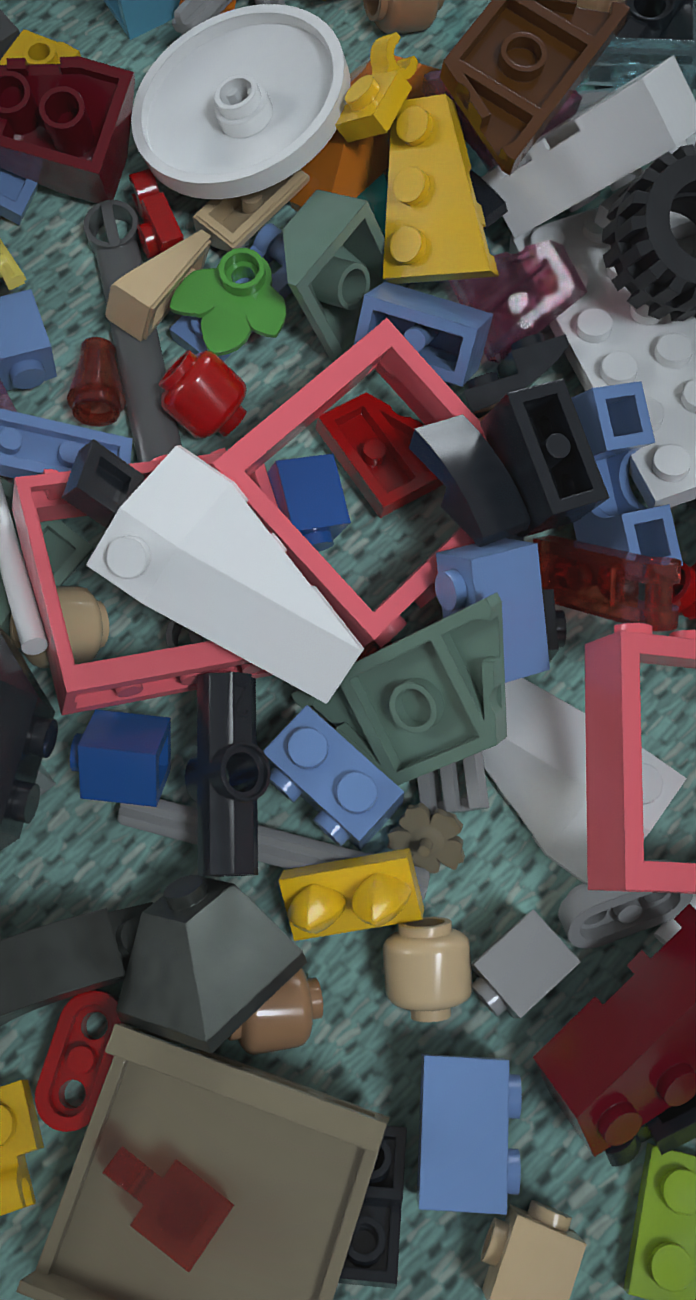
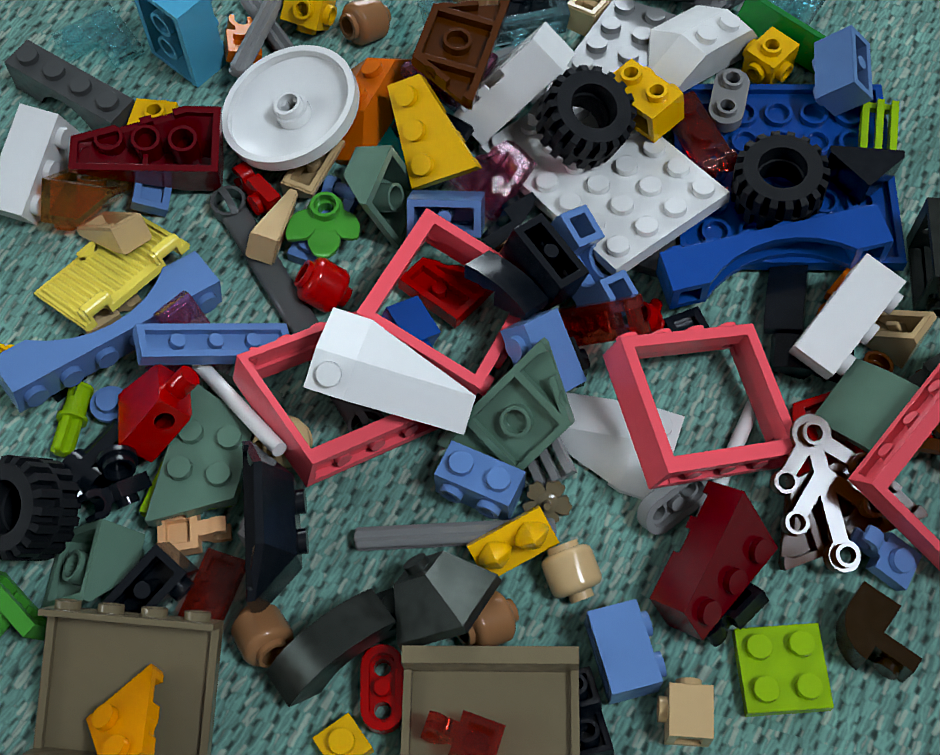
camera: 20 degrees left, 10 degrees down
(96, 386) = (253, 300): clear red cone -> none
(100, 483) = (292, 345): black plate -> none
(123, 757) = (347, 506): blue brick -> none
(227, 809) = (417, 493): black piece -> none
(378, 97) = (377, 87): yellow plate -> none
(522, 967) = (626, 553): light grey brick -> none

